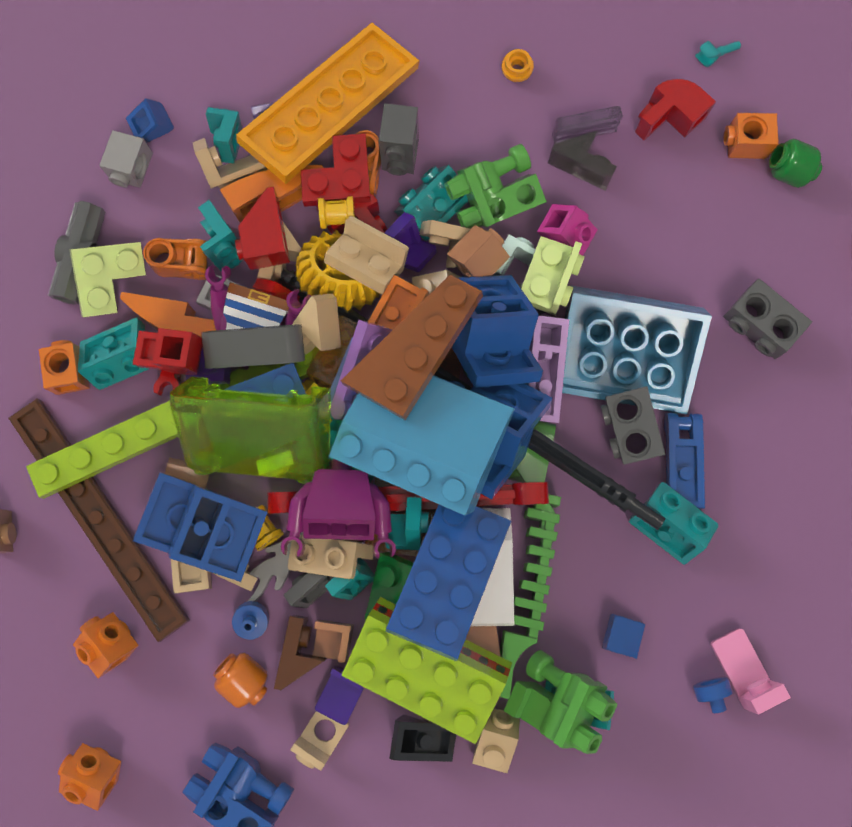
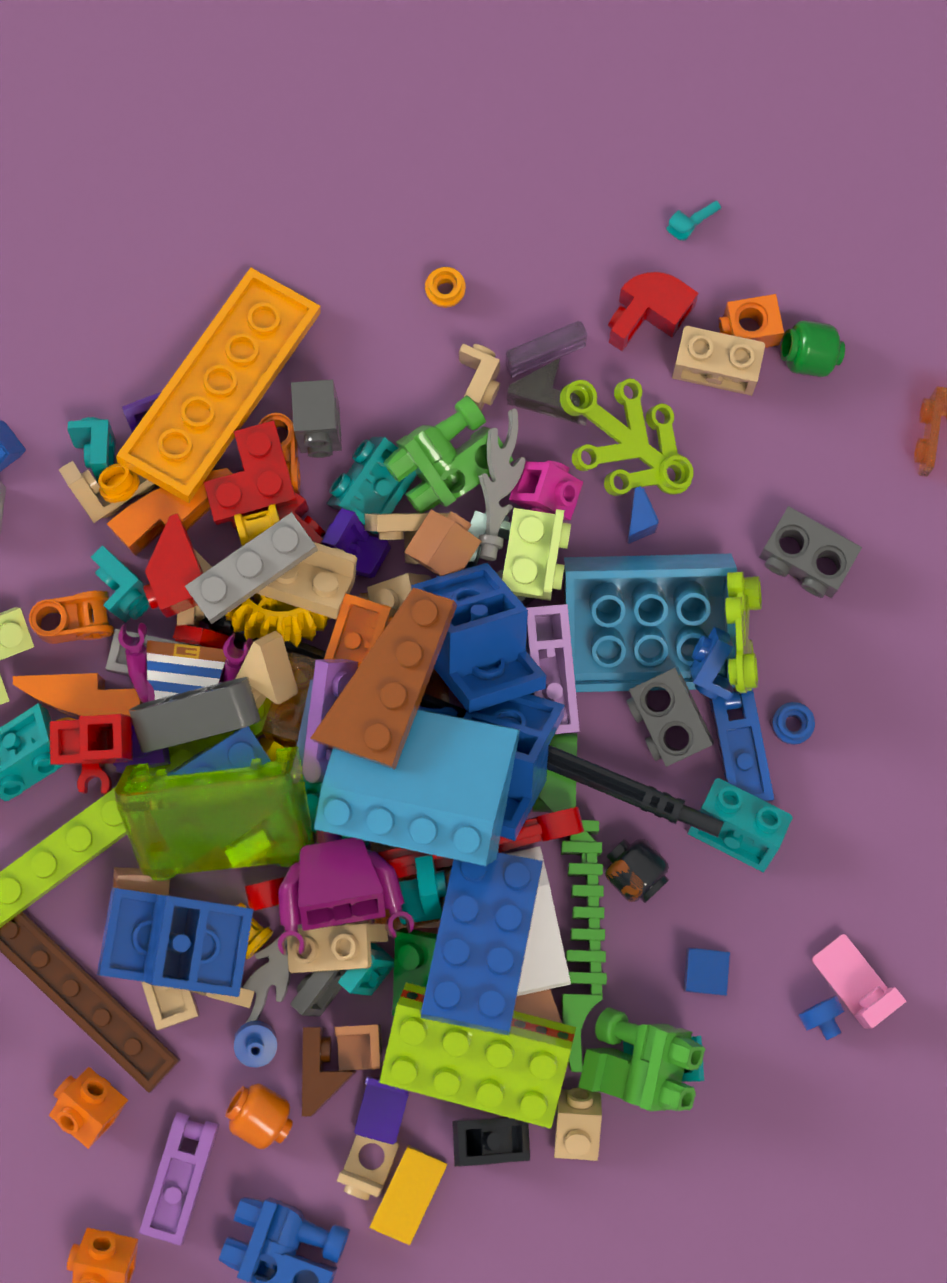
camera: 10 degrees left, 0 degrees up
(165, 719) = (178, 1180): none -> medium lavender plate
(235, 160) = (118, 483): none -> light orange plate
(322, 239) = (251, 568): none -> light grey plate
(347, 769) = (408, 1195): none -> yellow slope
(534, 216) = (503, 481): none -> light grey piece
(537, 130) = (484, 384): none -> tan bracket
(583, 543) = (636, 870): none -> black head
(639, 265) = (643, 517): none -> blue slope
(641, 204) = (631, 439): none -> lime plant
(674, 385) = (709, 658): none -> blue bracket
(707, 394) = (743, 596): none -> lime plant
(721, 158) = (719, 360): none -> tan bracket
(739, 450) = (802, 713): none -> blue plate

